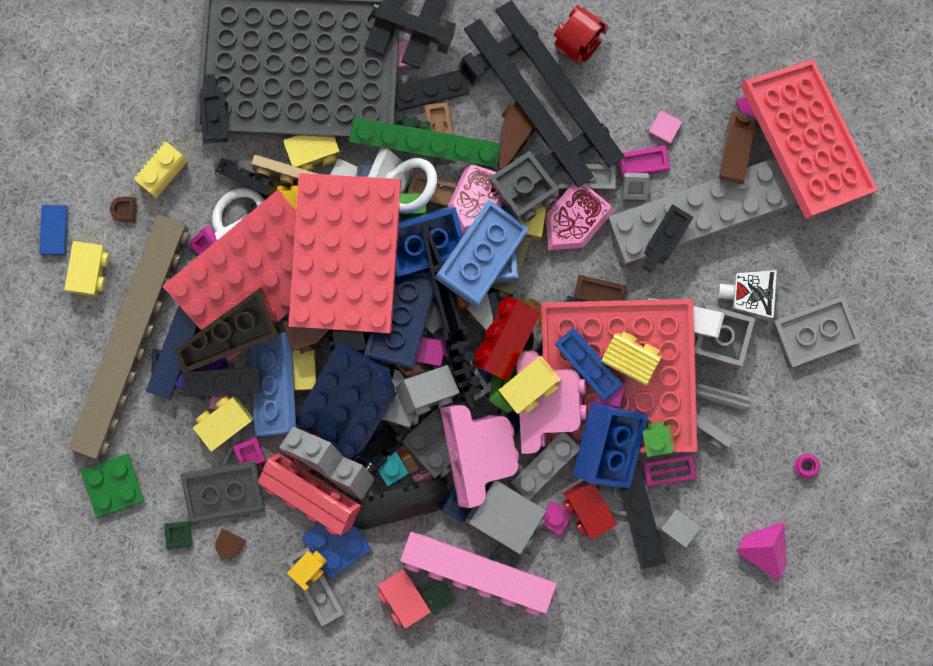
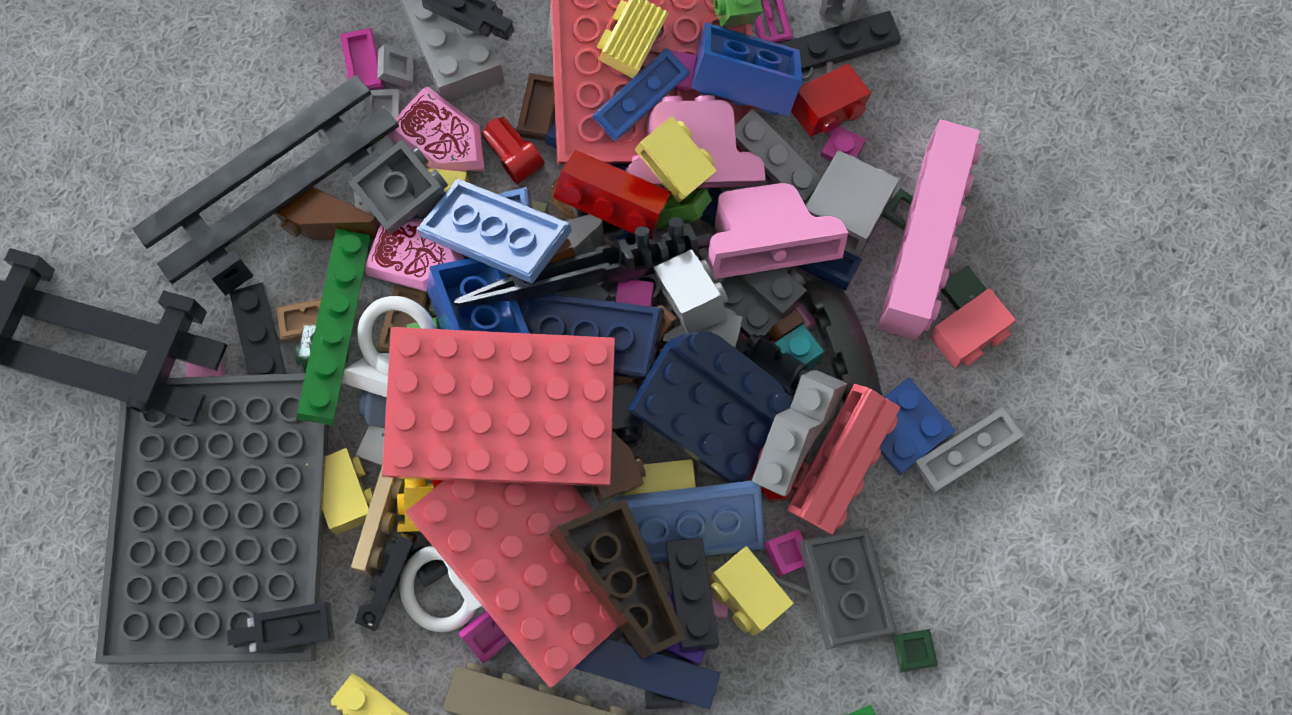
camera: 90 degrees left, 10 degrees down
(228, 544) = (921, 576): reddish brown tile -> none
(307, 569) = (949, 454): yellow brick -> none
(557, 275) = (517, 157): none -> red piece
(580, 35) = (185, 137): red brick -> none
(665, 127) = (315, 37): bright pink tile -> none

